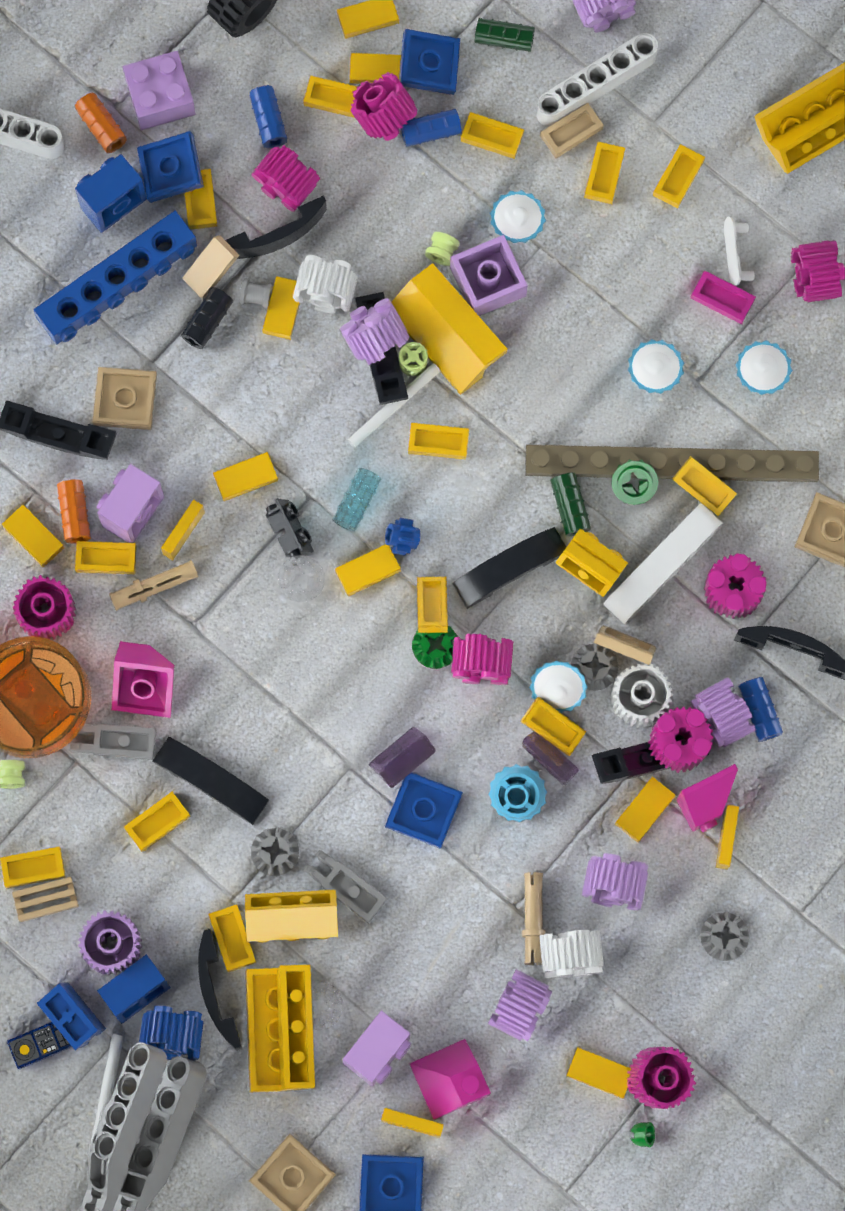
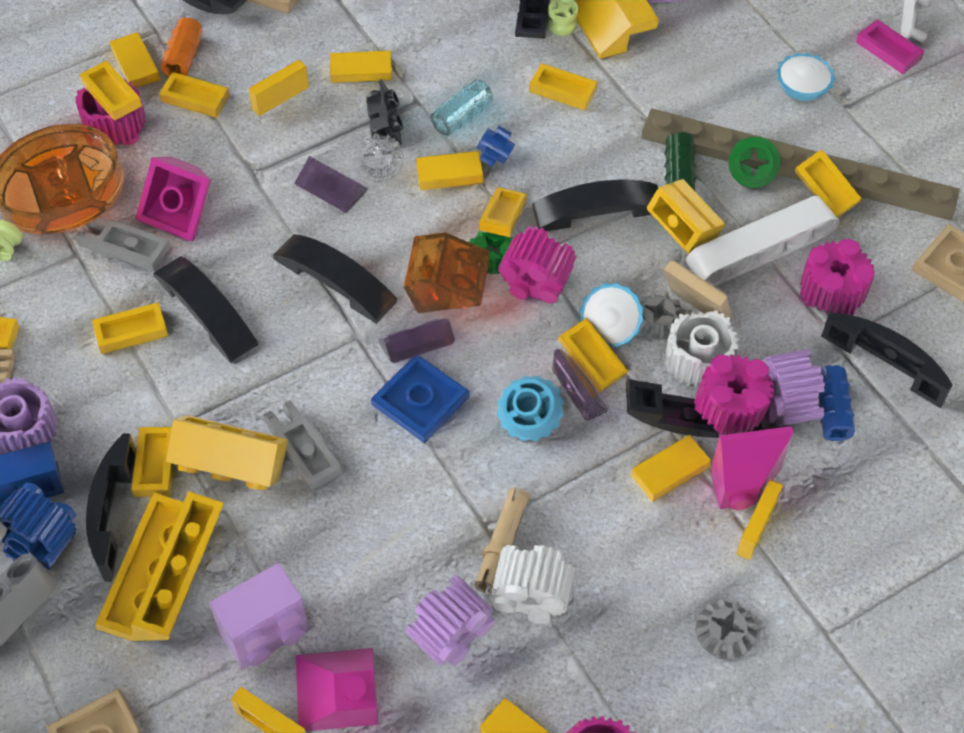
camera: 20 degrees right, 20 degrees down
(45, 599) = (110, 90): none -> yellow tile
(130, 503) = (236, 47): lavender brick -> none
(142, 589) = (228, 125): tan pin -> none
(268, 618) = (329, 185): none -> clear purple slope
(282, 863) = (244, 402): light grey gear -> none
(309, 713) = (339, 273): none -> black slope
(390, 408) = (529, 49): white bar -> none
(408, 689) = (445, 273): none -> clear orange slope
(615, 882) = (611, 521): lavender brick -> none
(763, 367) = (918, 104): white piece -> none

